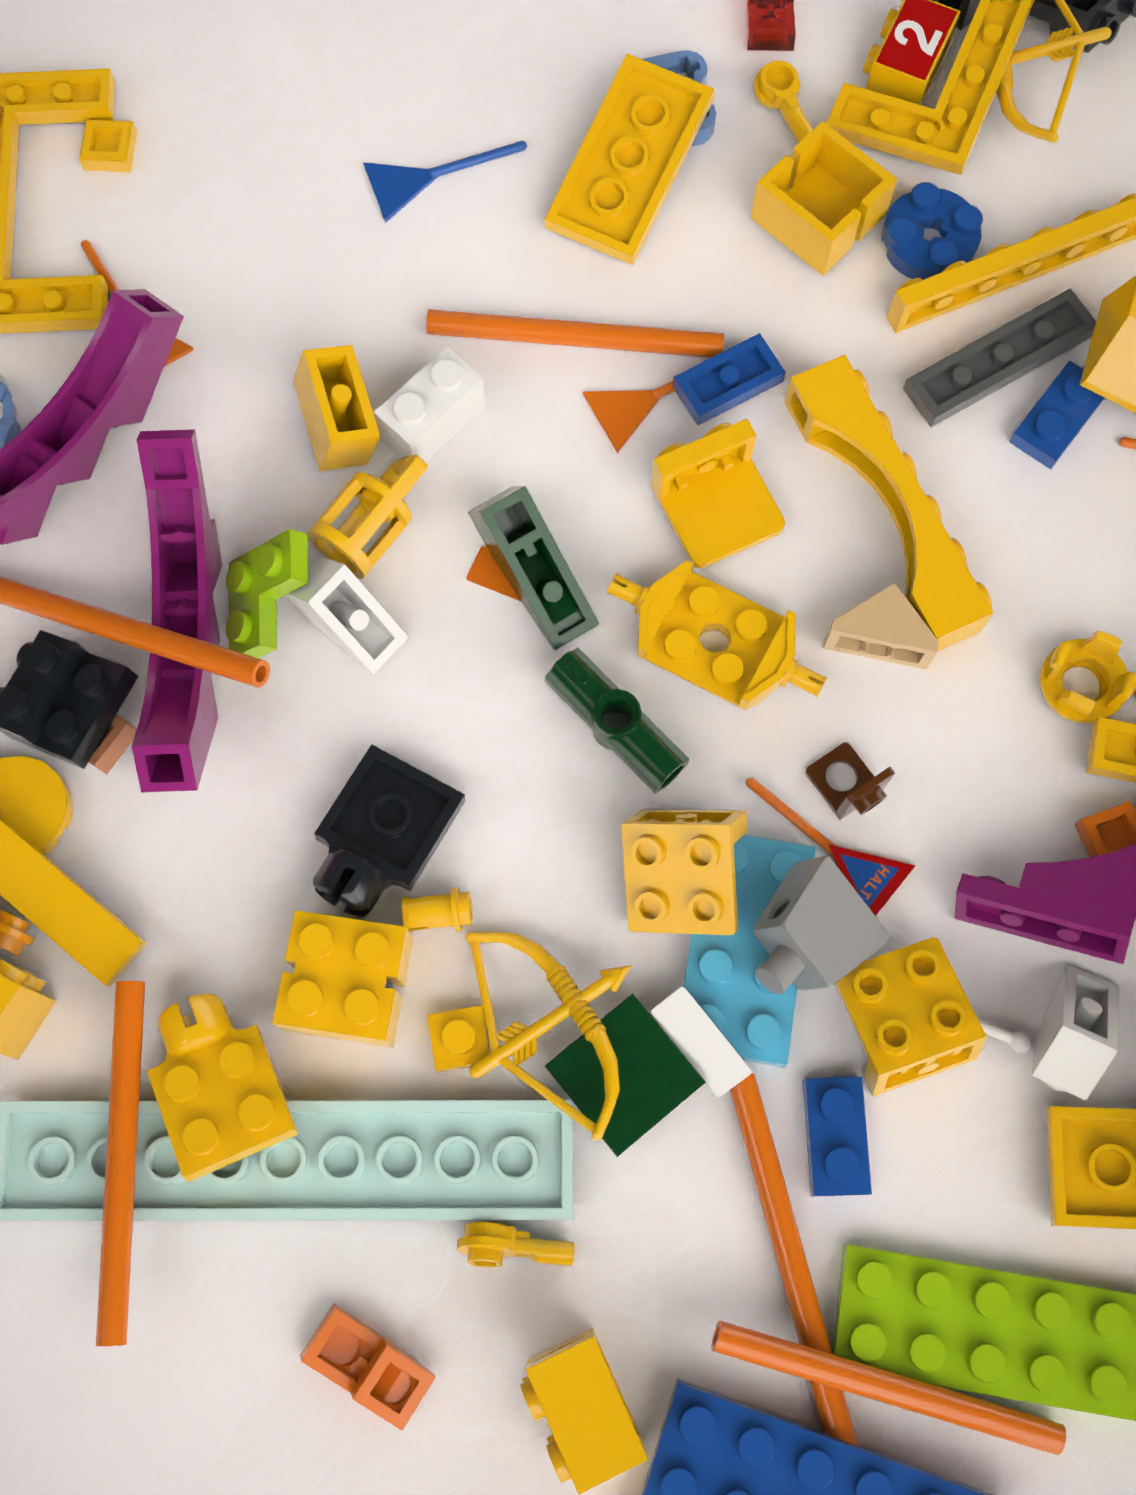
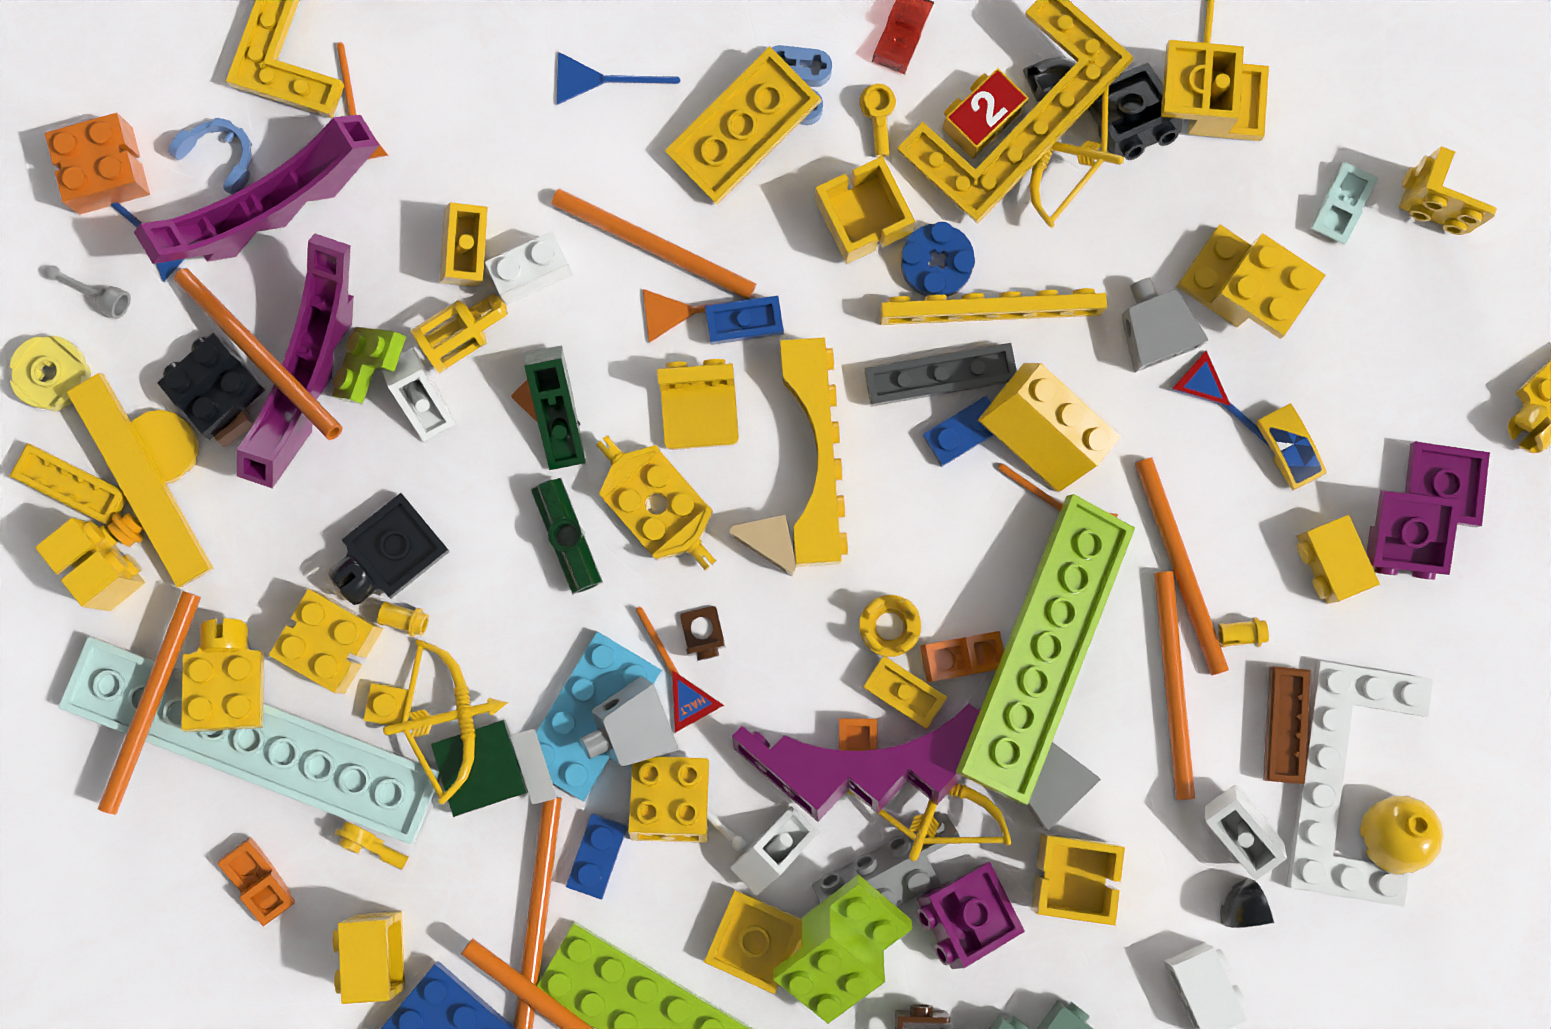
camera: 20 degrees right, 10 degrees up
(682, 870) = (565, 651): yellow bracket -> none

